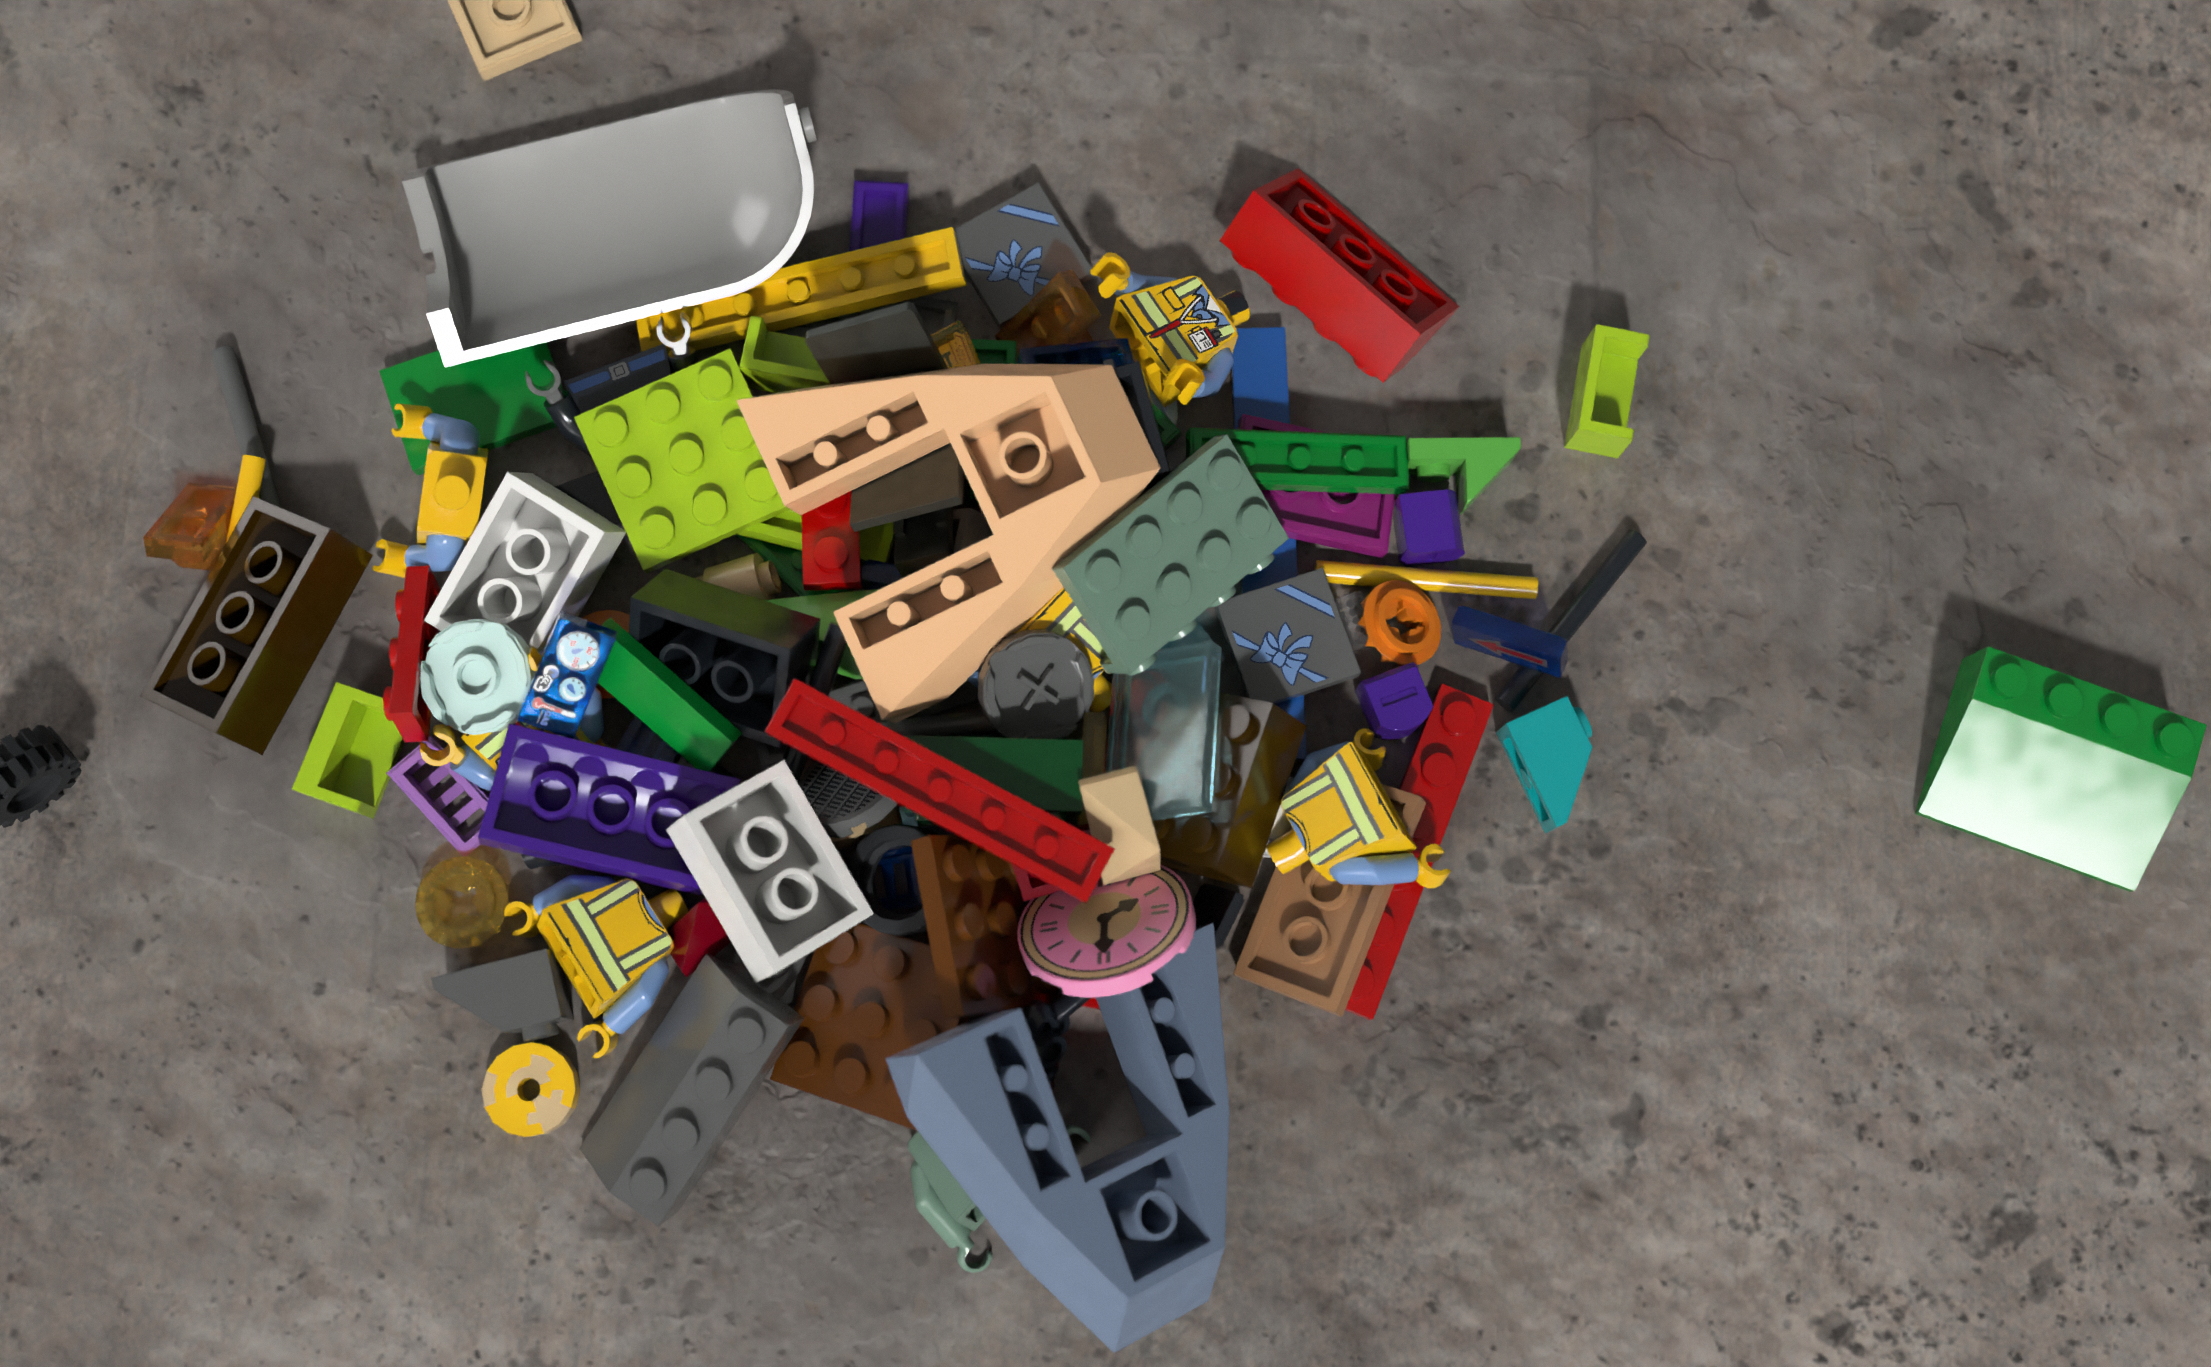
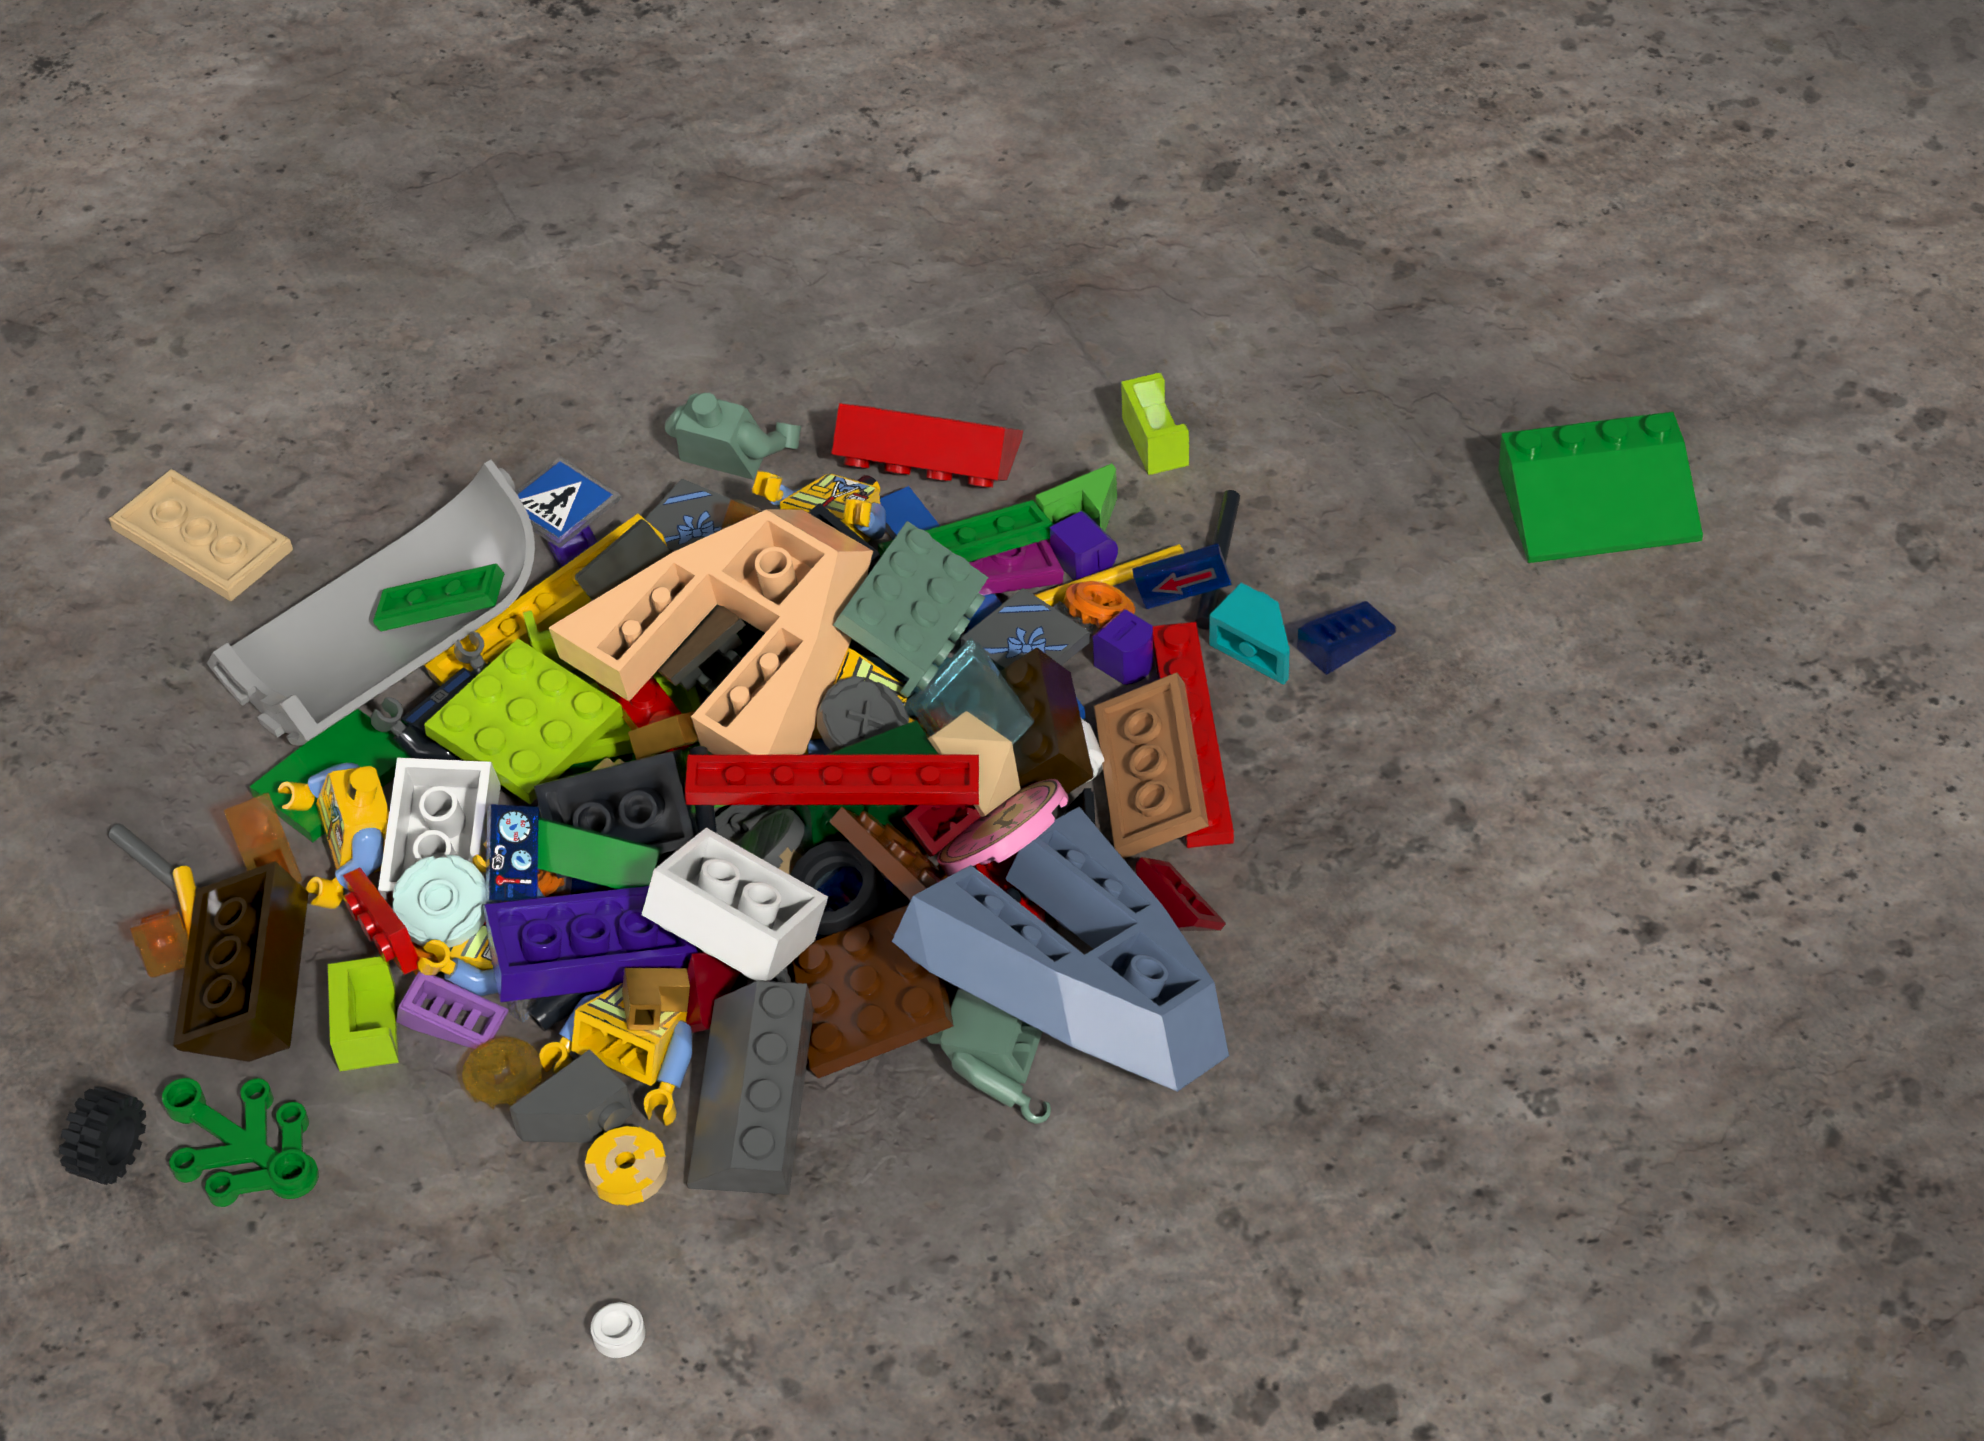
camera: 20 degrees left, 30 degrees down
(172, 847) = (242, 1145): none -> green plant
(351, 468) = (260, 835): none -> clear orange slope
(426, 1287) = (618, 1330): none -> white tile
(632, 923) = (653, 991): none -> pearl gold piece
(685, 225) = (439, 597): none -> green tile
(819, 592) = (663, 735): none -> pearl gold piece
(889, 142) = (564, 501): none -> piece
(1112, 149) = (725, 436): none -> sand green torso
(1262, 1073) = (1178, 897): none -> dark red slope
(1349, 823) = (1138, 706): torso -> none
(1607, 820) = (1328, 656): none -> clear blue slope

